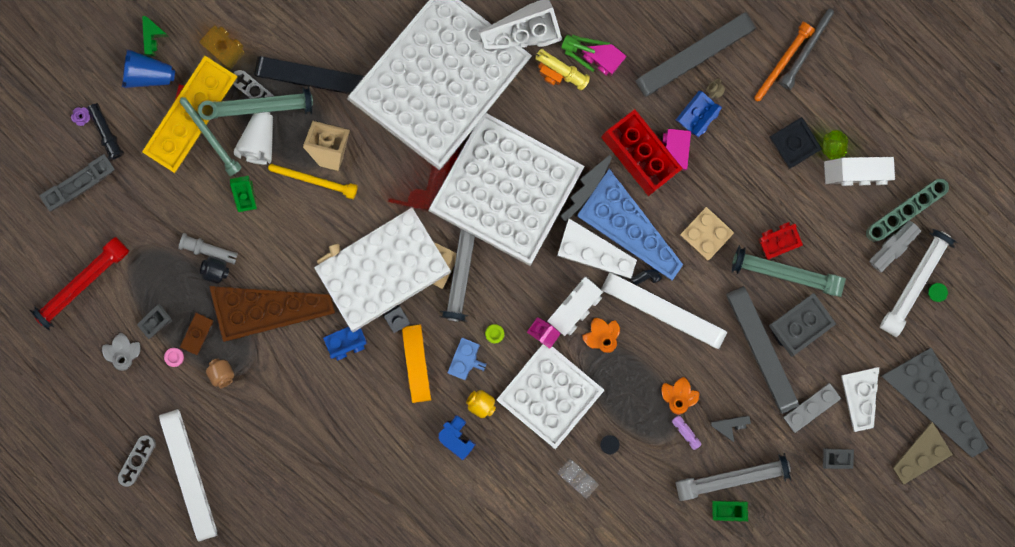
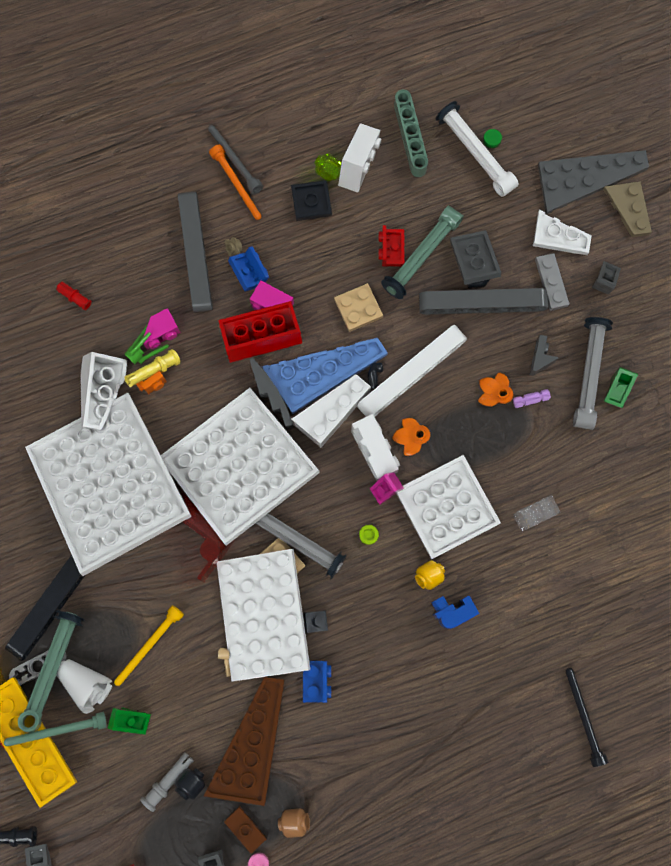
camera: 65 degrees left, 10 degrees down
(326, 144) = (120, 618): tan slope -> none
(416, 363) = (366, 621): light orange slope -> none
(465, 359) = (381, 572): medium blue plate -> none
(609, 444) = (515, 472): black tile -> none
(895, 246) = (438, 156): light grey piece -> none

